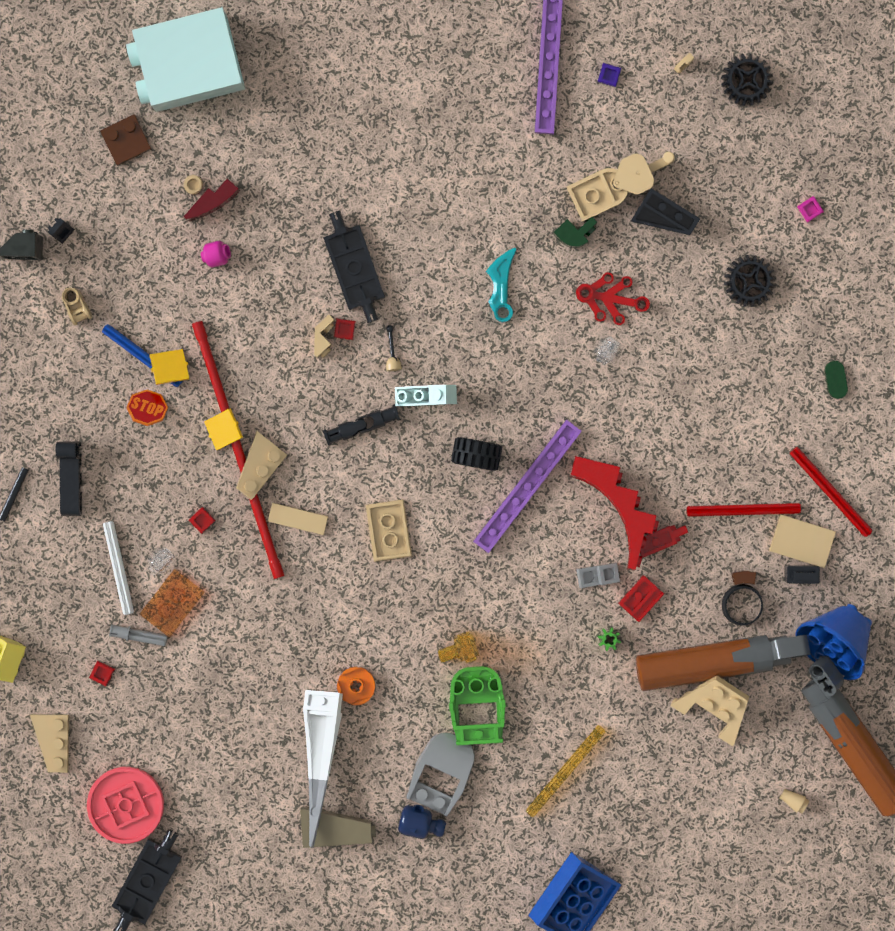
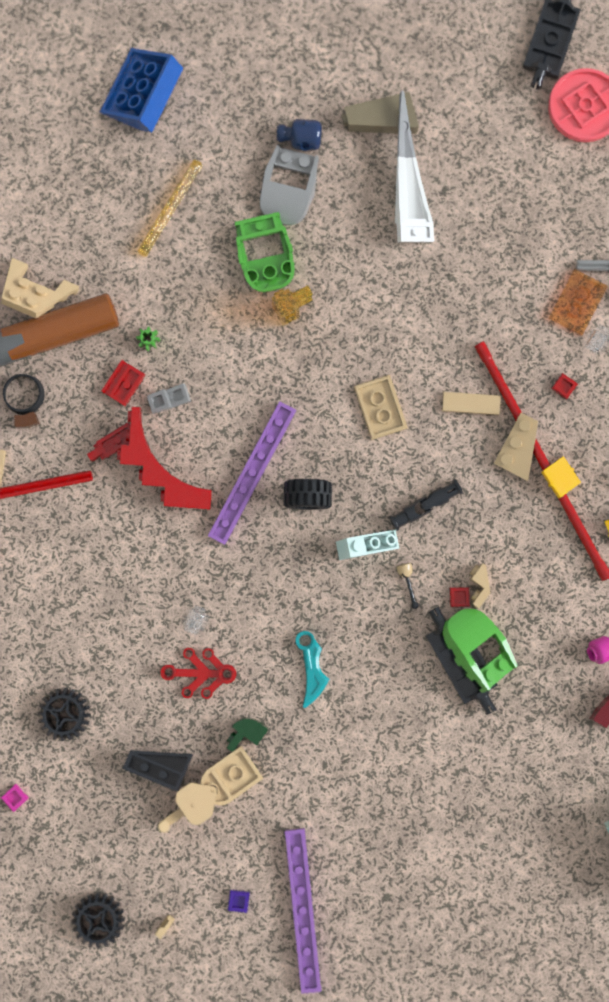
camera: 170 degrees right, 5 degrees down
(344, 293) = (465, 633): none -> bright green slope
(360, 675) = (384, 264): orange plate -> none

